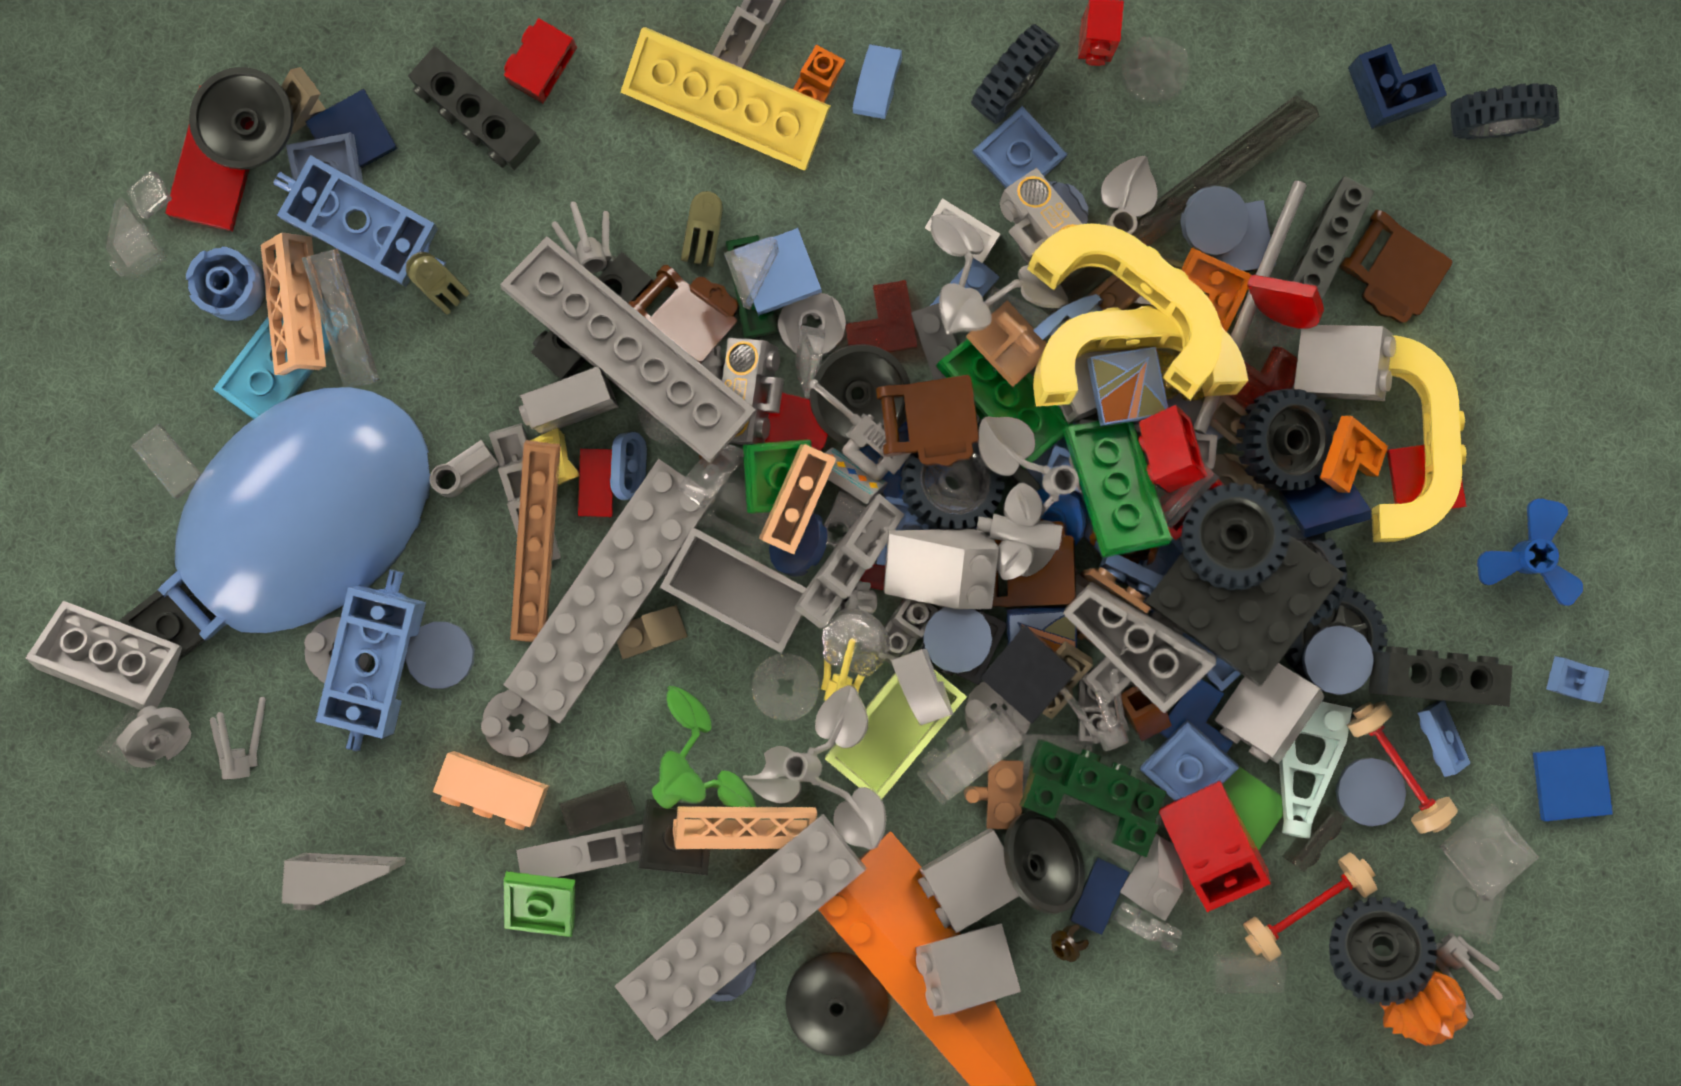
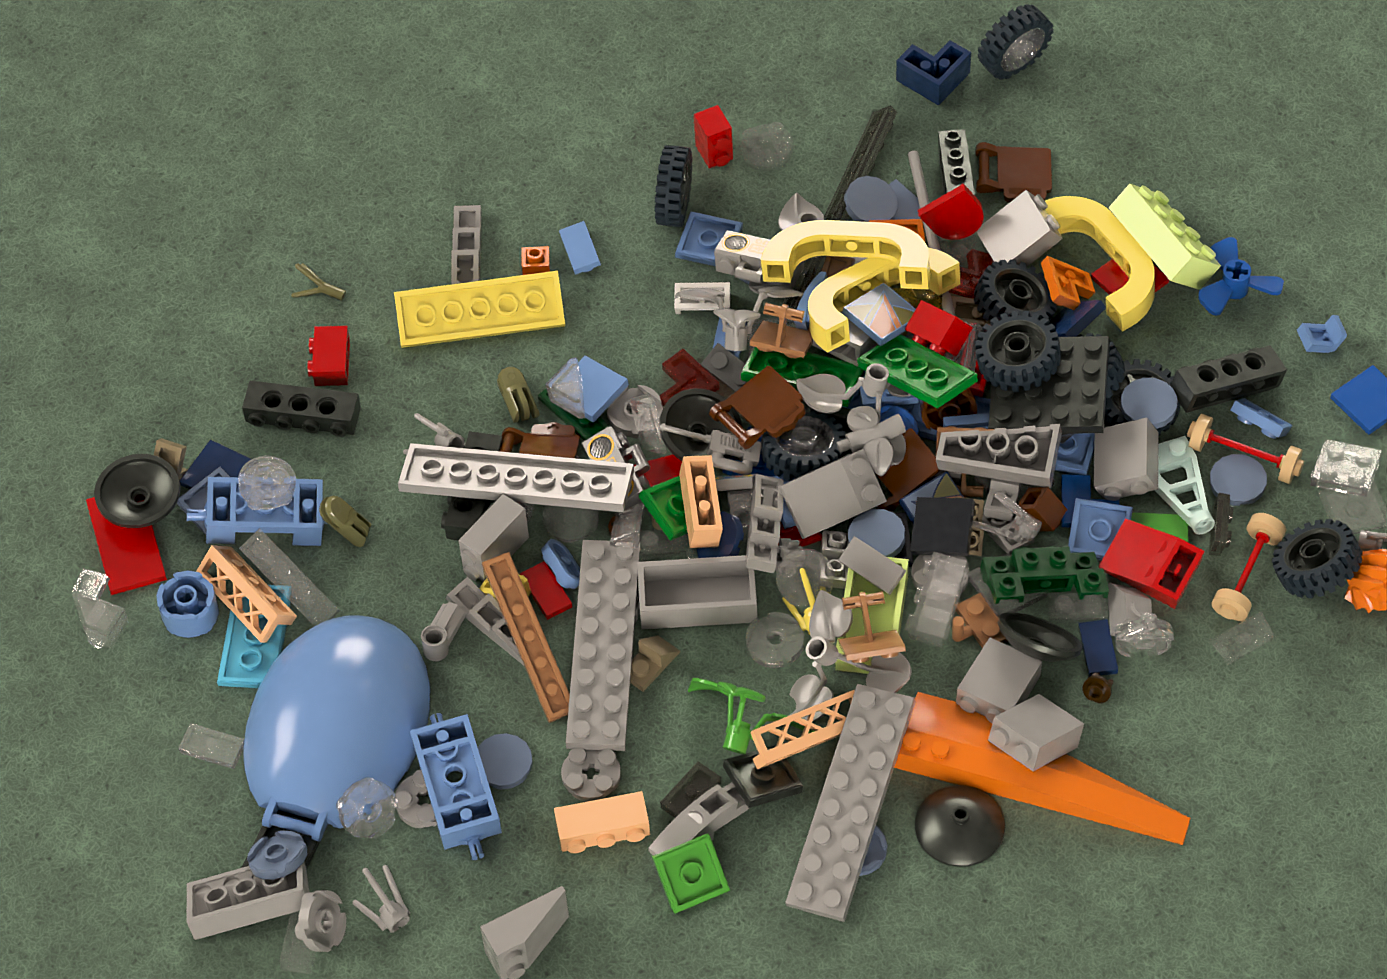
camera: 30 degrees left, 30 degrees down
(152, 636) = (277, 855): none -> sand blue tile
(269, 636) = (352, 804): none -> clear plate
(365, 200) = (267, 482): none -> clear tile
(859, 786) = (869, 645): none -> medium nougat plate
(1494, 464) = (1165, 236): none -> yellowish green piece

